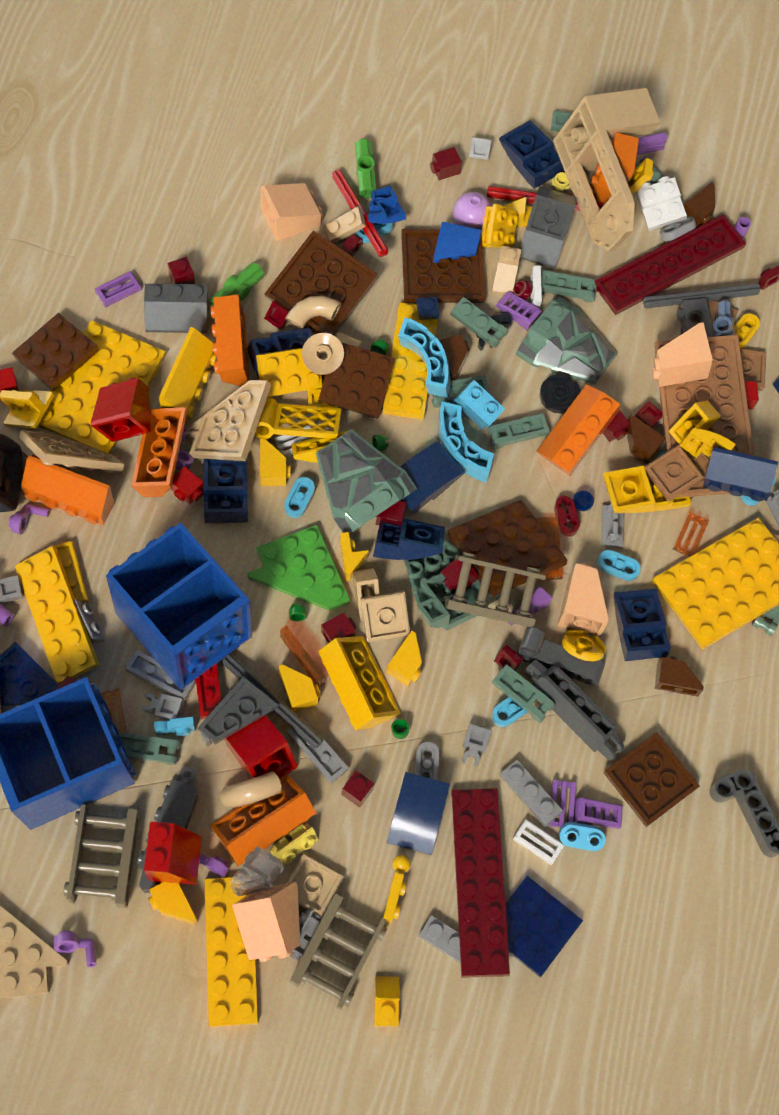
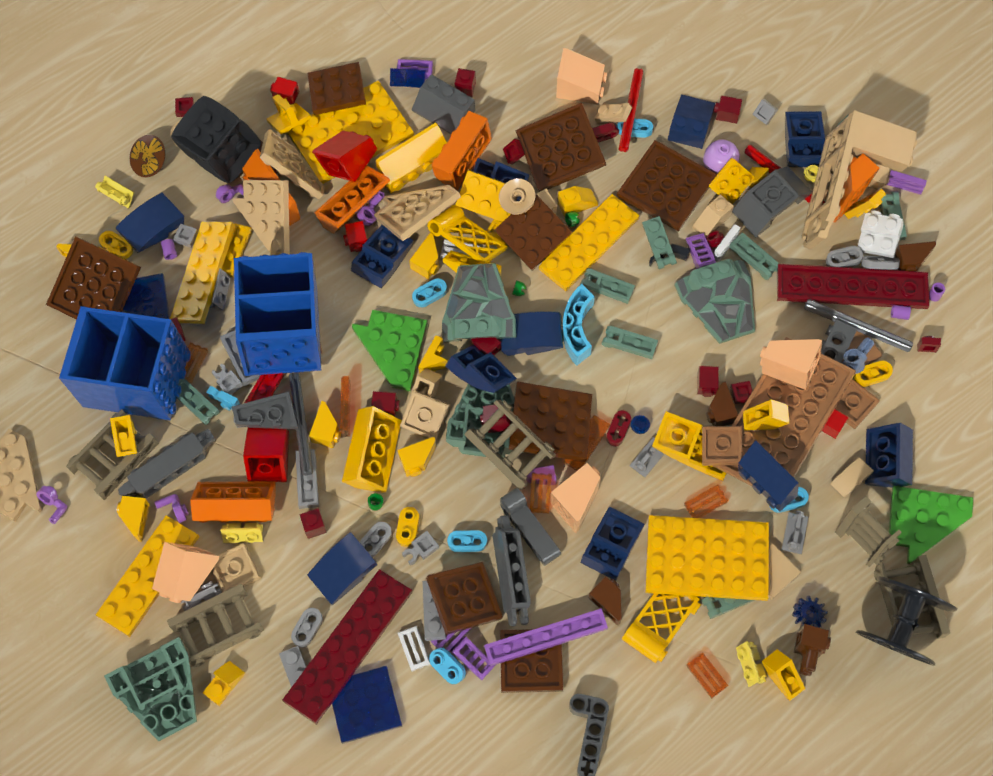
camera: 45 degrees right, 0 degrees up
(81, 514) = (267, 212): none -> tan wing
(108, 828) = (123, 435): none -> yellow slope
(119, 302) = (407, 77): none -> clear blue slope
(172, 854) = (148, 479): red slope -> none
(241, 283) = (500, 115): bright green piece -> none
(251, 790) = (238, 475): tan cylinder -> none
(257, 873) = (198, 533): clear slope -> none
(297, 612) = (366, 373): green hinge -> none
(312, 307) = (538, 159): tan cylinder -> none
(332, 1052) = (158, 689): none -> sand green wedge
(364, 160) = (665, 72): bright green piece -> none
(370, 328) = (576, 199): none -> yellow slope
(385, 207) = (652, 116): blue slope -> none
(401, 865) = (287, 610): yellow plate -> none
(421, 194) = (691, 121): none -> dark blue slope
(426, 892) = (305, 627): none -> light grey plate
(427, 308) = (627, 210): dark blue plate -> none
(430, 350) = (599, 252): medium azure brick -> none
(446, 731) = (407, 525): none -> yellow plate
(456, 242) = (687, 172): blue slope -> none
(456, 353) = (622, 257): reddish brown slope -> none
(478, 405) = (607, 302): medium azure piece -> none
(508, 657) = (491, 504): dark red plate -> none
(523, 693) = (480, 533): sand green plate -> none
(533, 610) = (541, 476): none -> clear orange tile
(552, 763) = (464, 597): none -> reddish brown plate
(558, 393) = (685, 334): black tile -> none
(579, 429) = (673, 369): orange slope -> none
(583, 646) = (554, 529): yellow tile -> none
(618, 565) = (631, 489): medium azure plate -> none
(642, 242) = (843, 258): none -> light grey plate
(652, 749) = (545, 637): none -> medium lavender plate
(703, 441) = (754, 432): yellow slope -> none
(725, 263) = (900, 312): none -> medium lavender hinge
(737, 691) = (649, 642): none -> yellow piece

